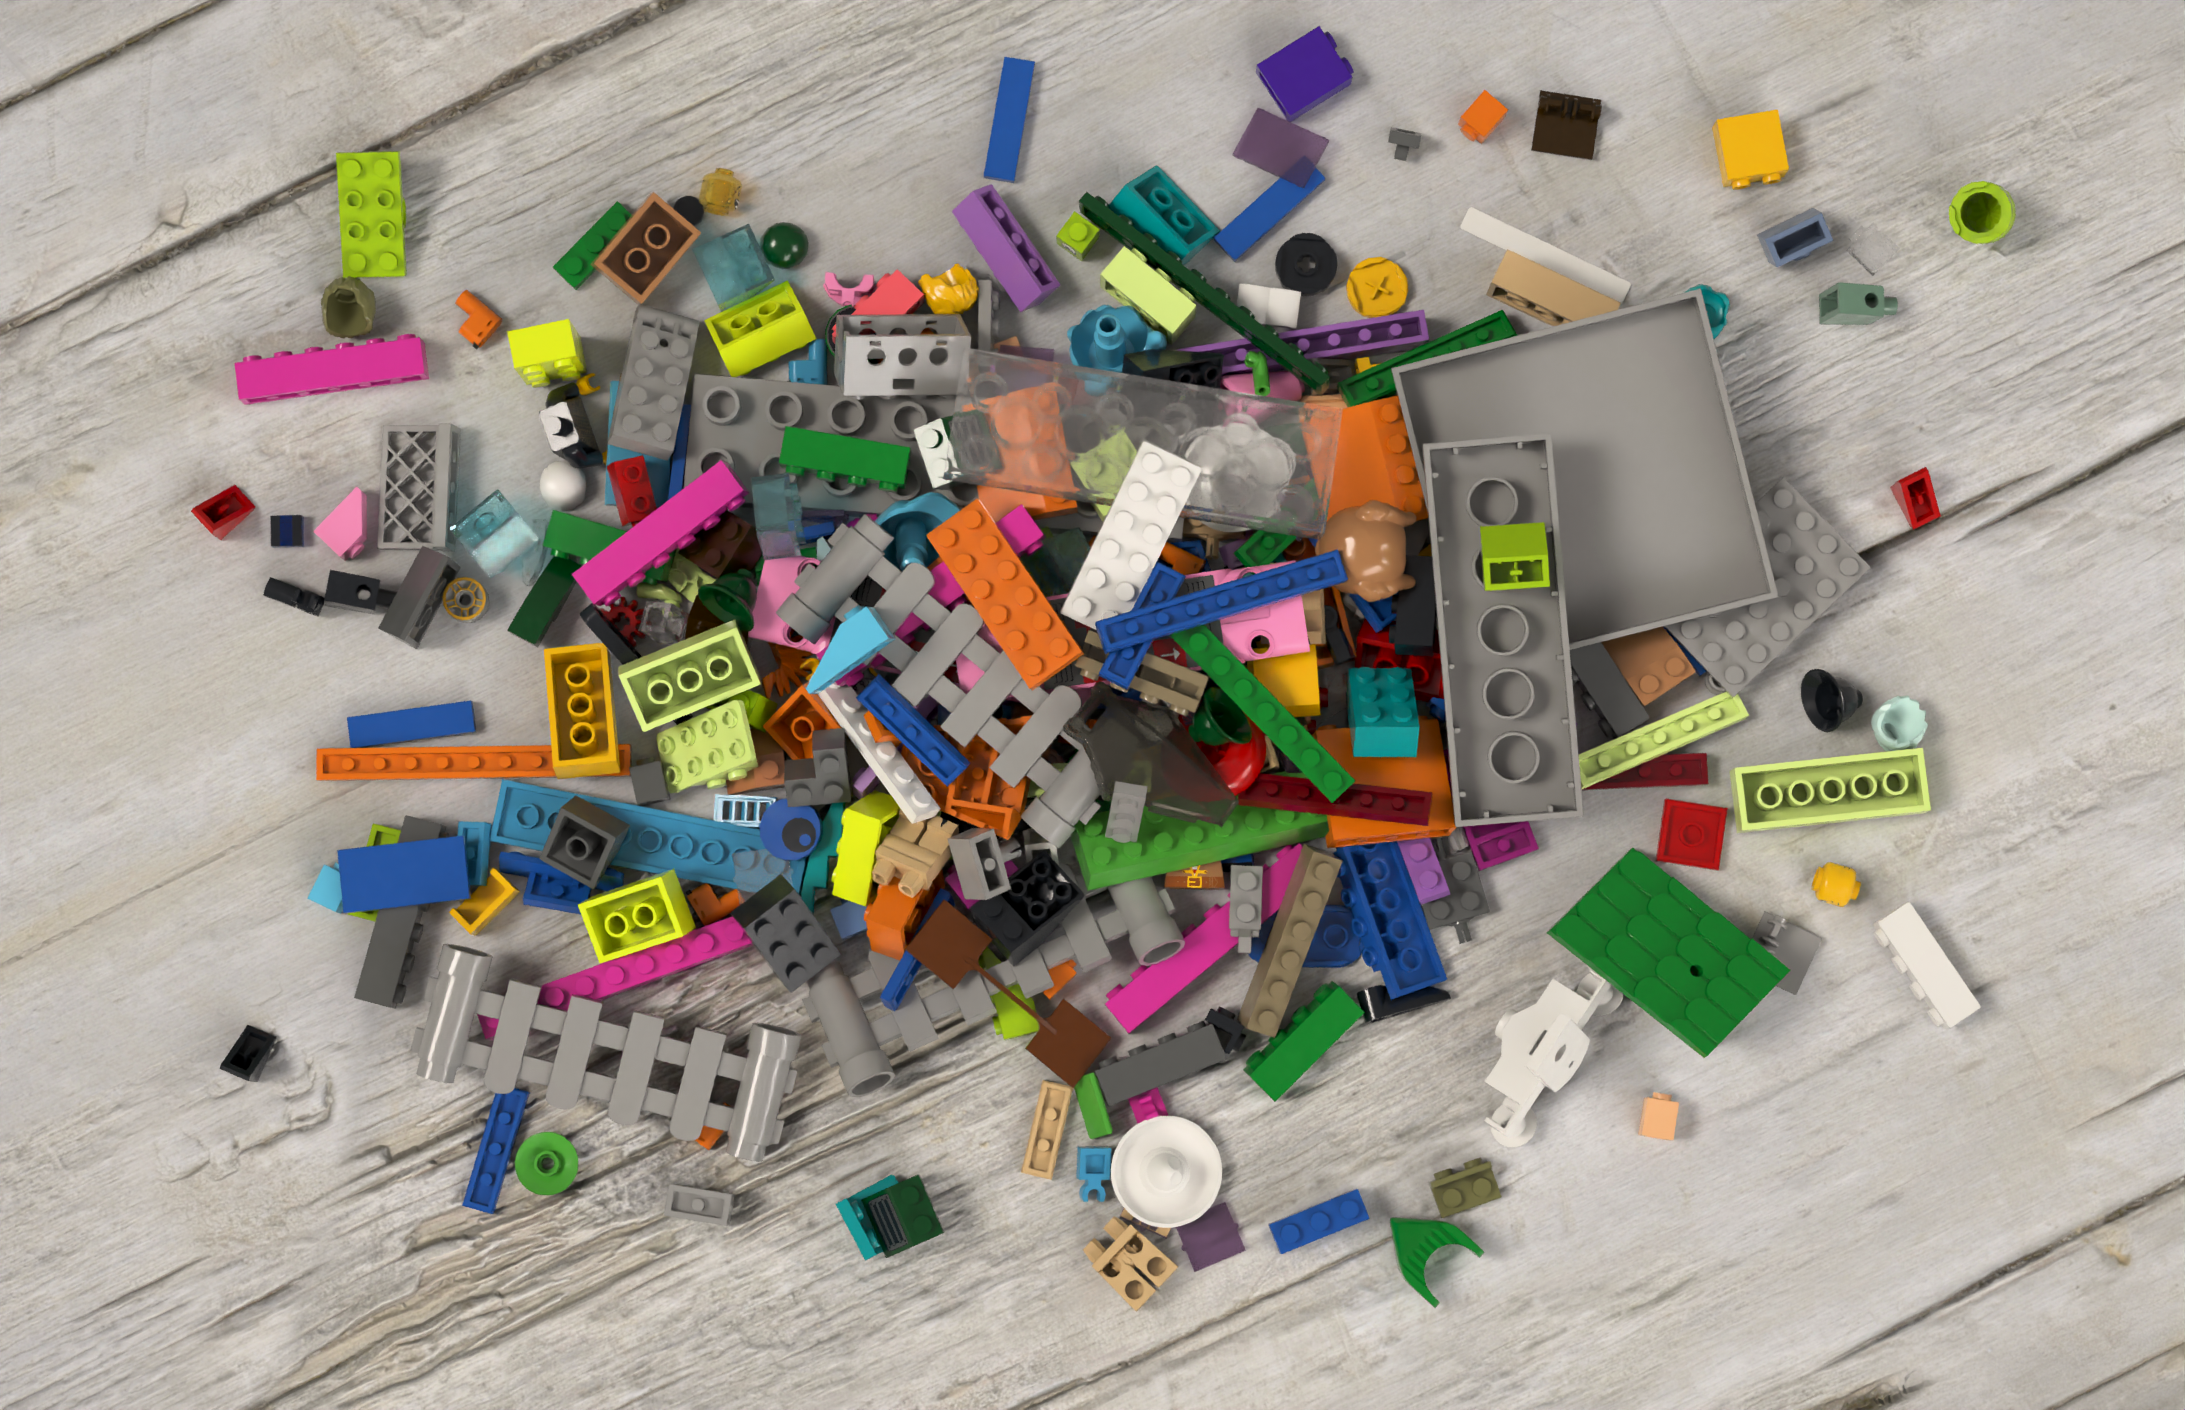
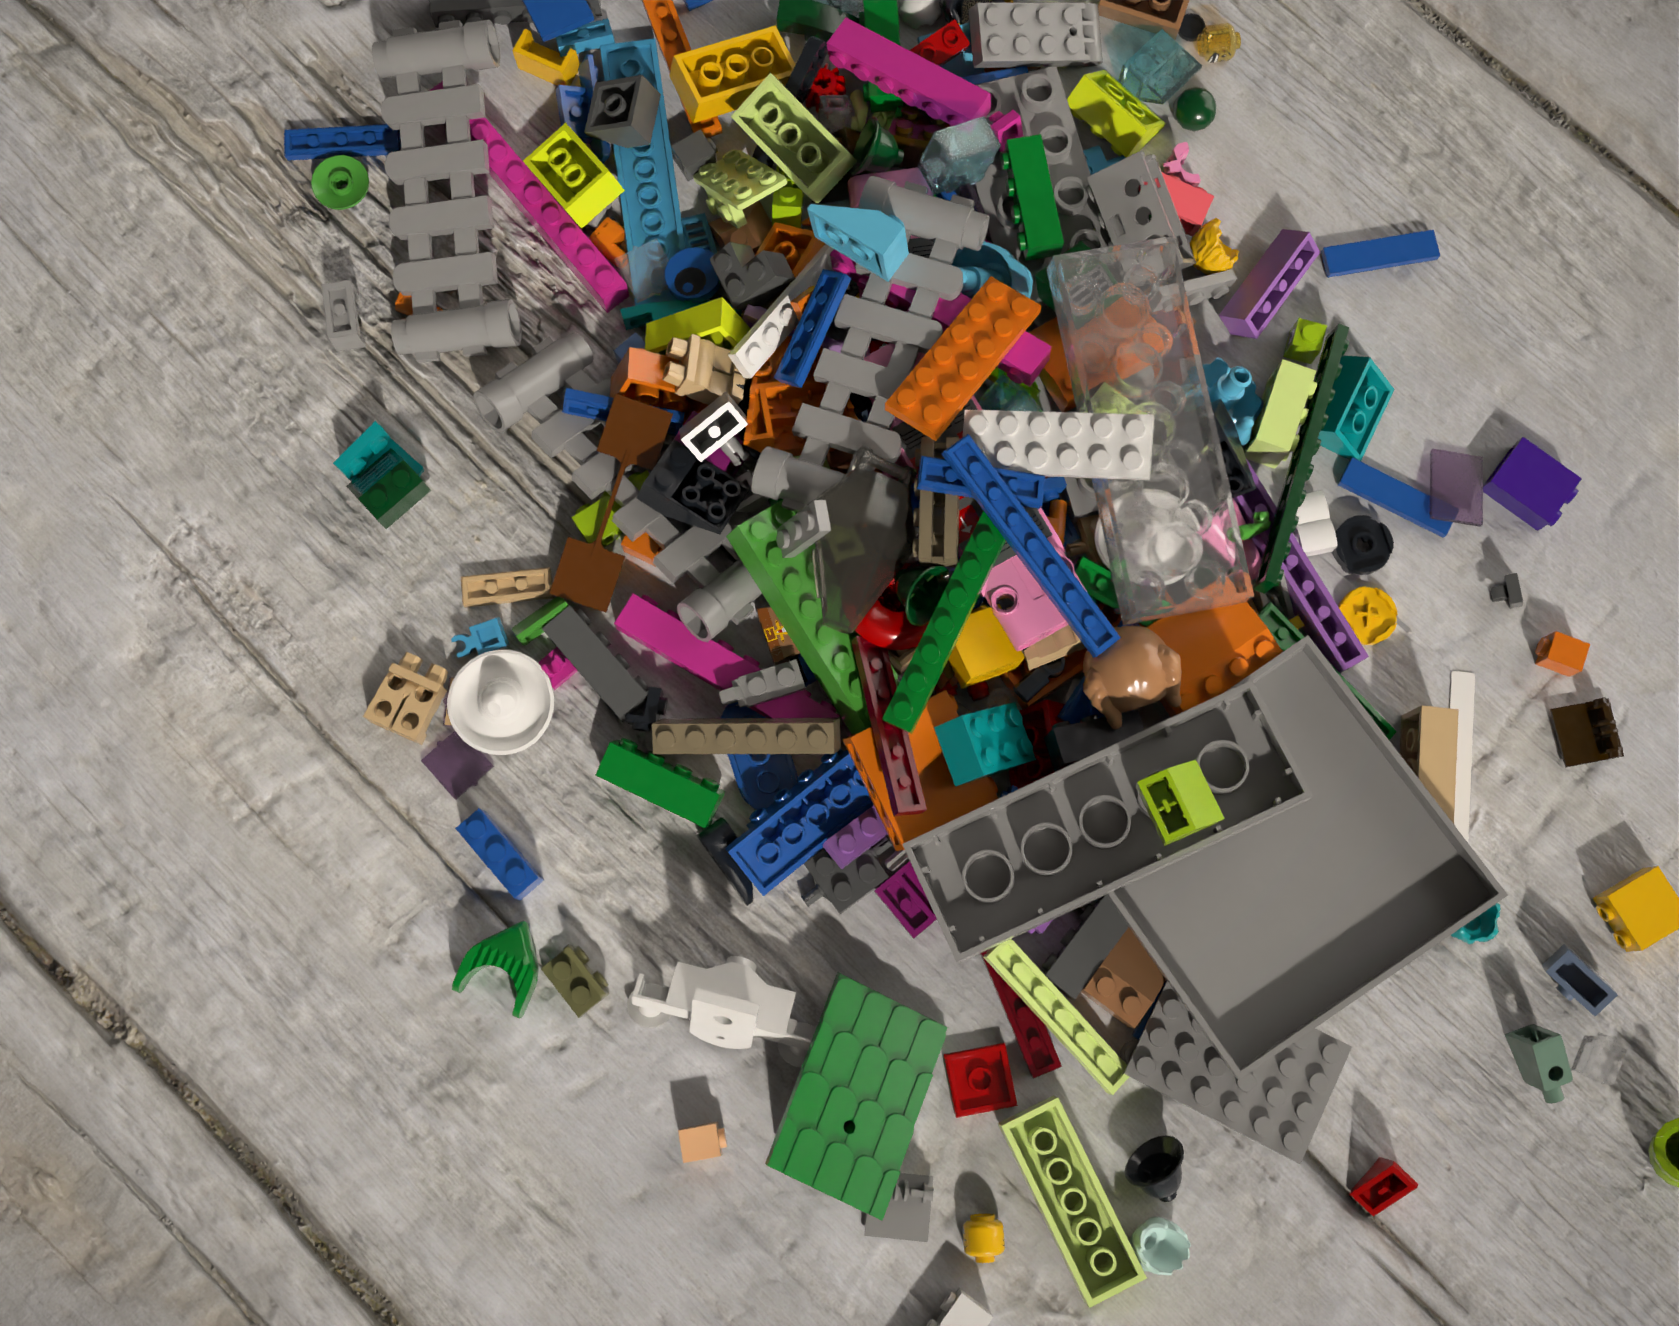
camera: 65 degrees right, 5 degrees down
(758, 458) = (1006, 126): none -> dark pink tile
(785, 933) = (597, 294): black brick -> none

